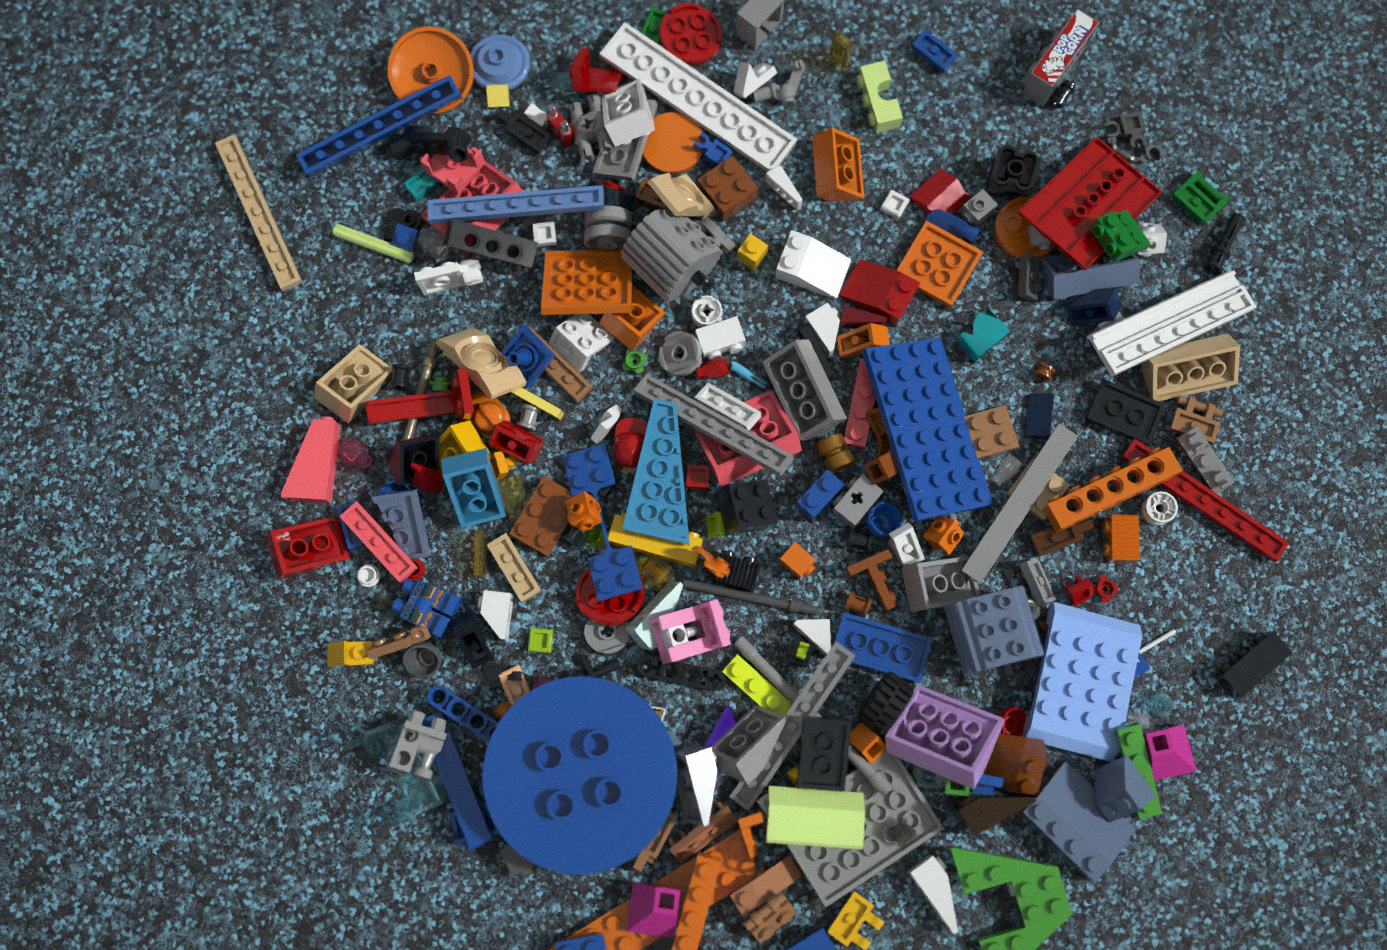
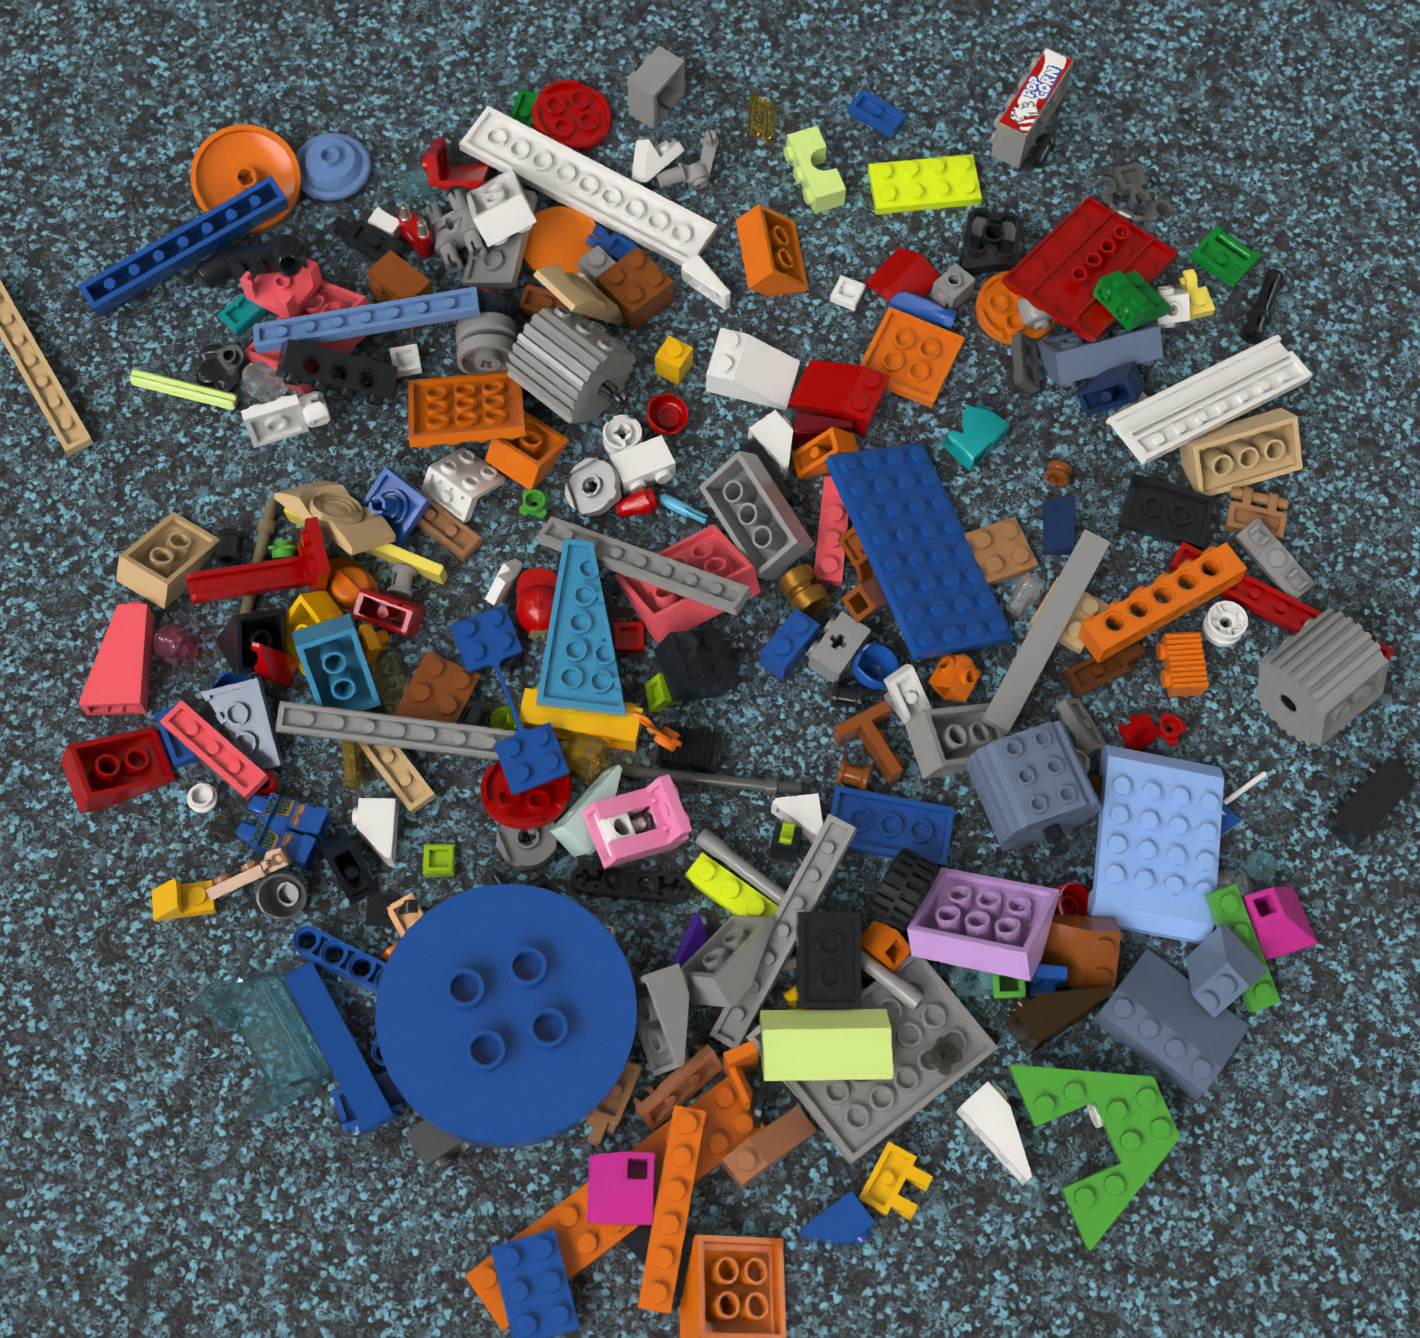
camera: 10 degrees left, 10 degrees down
(405, 237) = (225, 376): blue plate -> none
(418, 739) = (285, 993): light grey hips -> none
(498, 95) = (333, 203): light yellow tile -> none
(511, 539) = (389, 730): none -> light grey tile
(542, 172) = (396, 279): none -> dark orange brick
(583, 511) = (483, 685): orange brick -> none
(697, 167) = (594, 263): none -> light grey brick
(717, 234) = (638, 347): light grey plate -> none
(728, 406) = (662, 543): white plate -> none
(743, 297) = (667, 414): none -> red hair
(770, 917) = (779, 1185): medium nougat plate -> none
(798, 561) = (769, 728): orange brick -> none
(966, 115) = (924, 184): none -> neon yellow plate
(1175, 235) = (1199, 298): none -> light yellow plate
(1229, 565) = (1322, 677): none -> light grey piece

